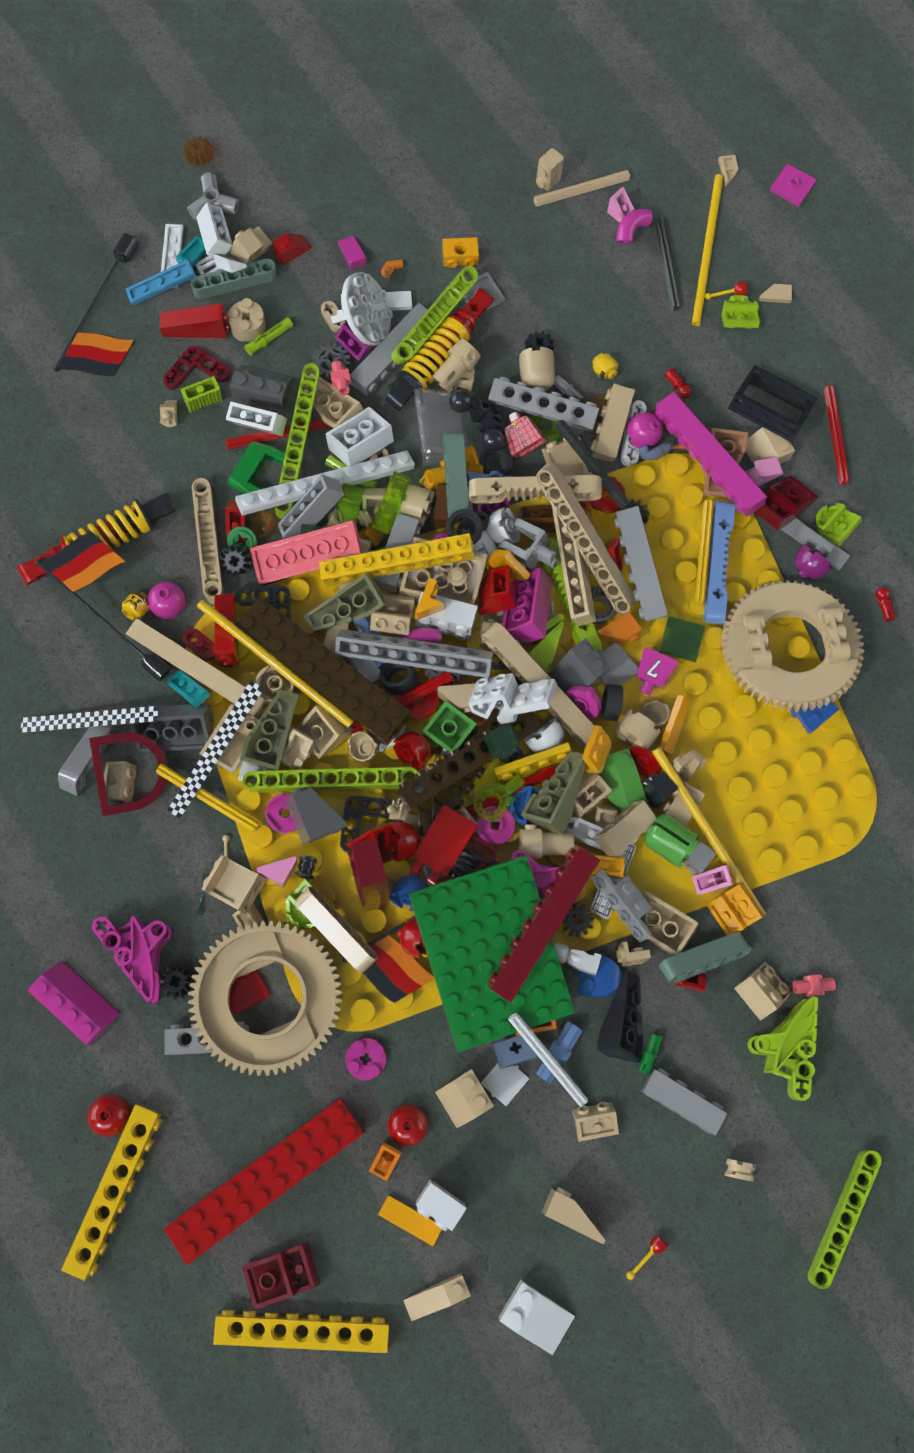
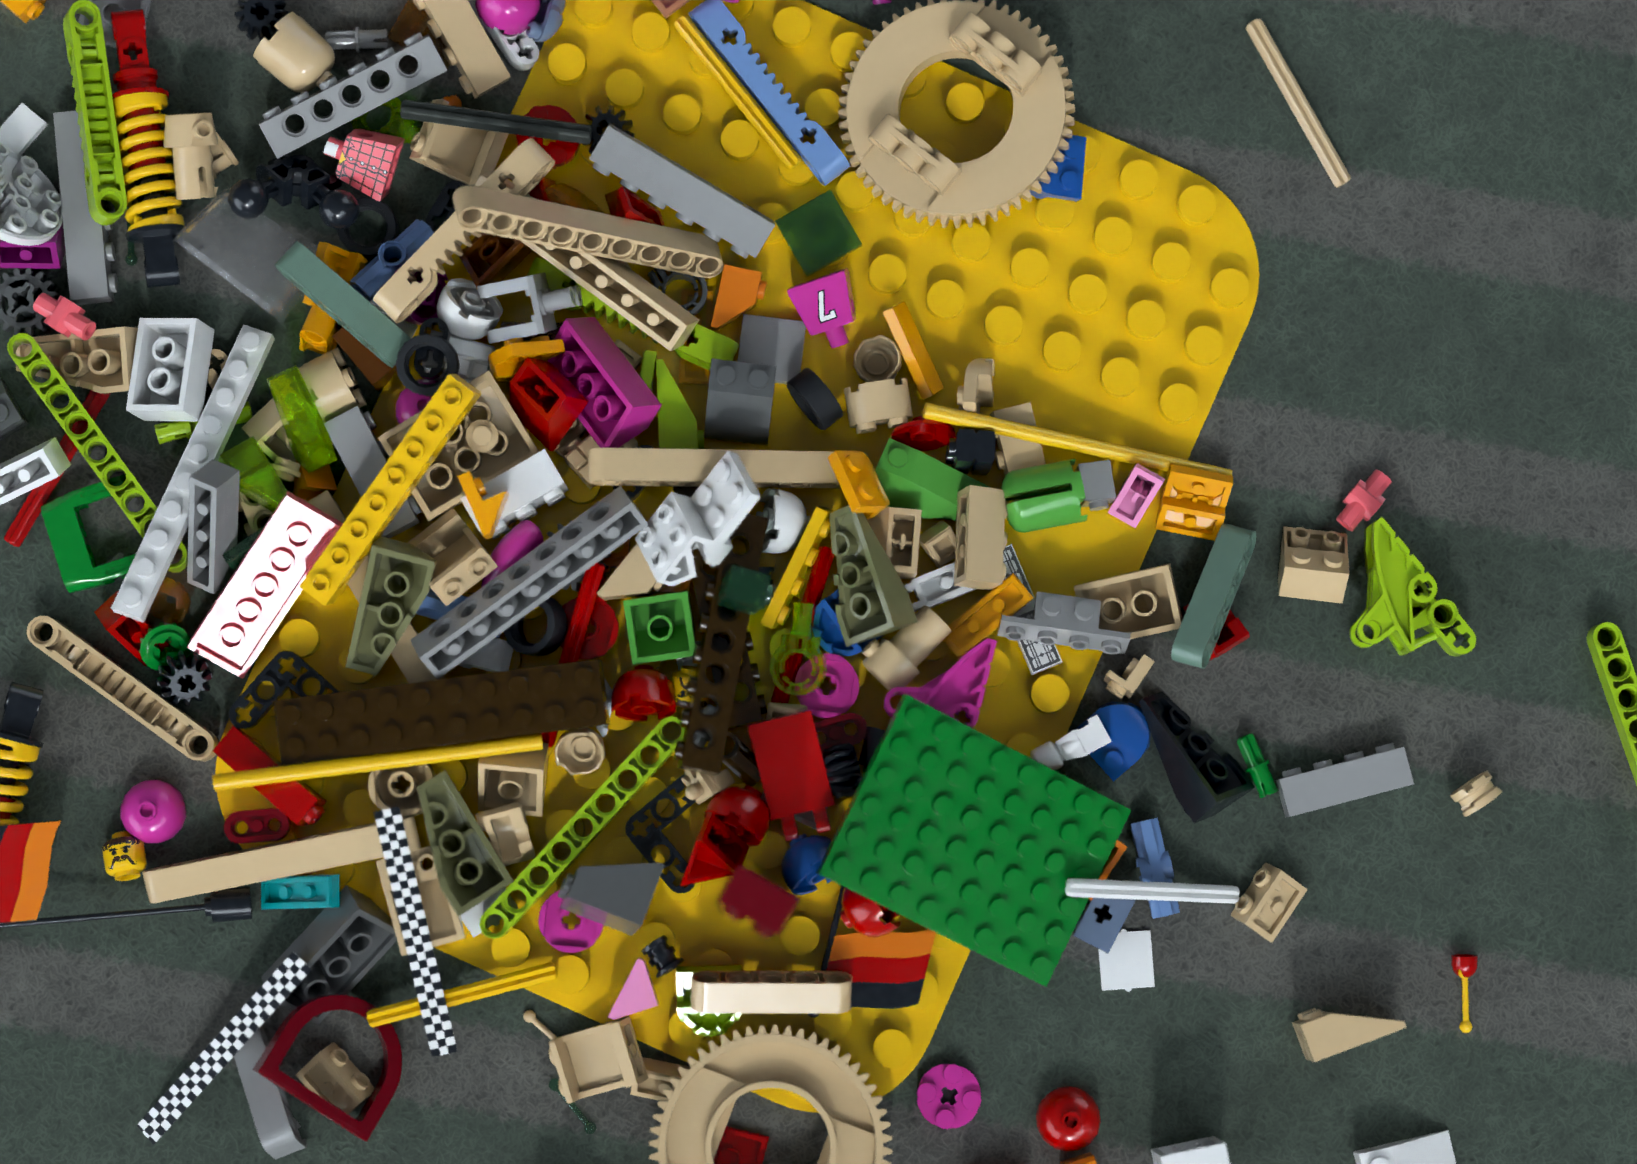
camera: 40 degrees left, 10 degrees up
(464, 1099) = (1102, 1027): tan slope -> none
(543, 923) = (1000, 751): dark red brick -> none
(582, 918) = (1033, 691): black gear -> none
(588, 697) = (783, 432): dark pink plate -> none

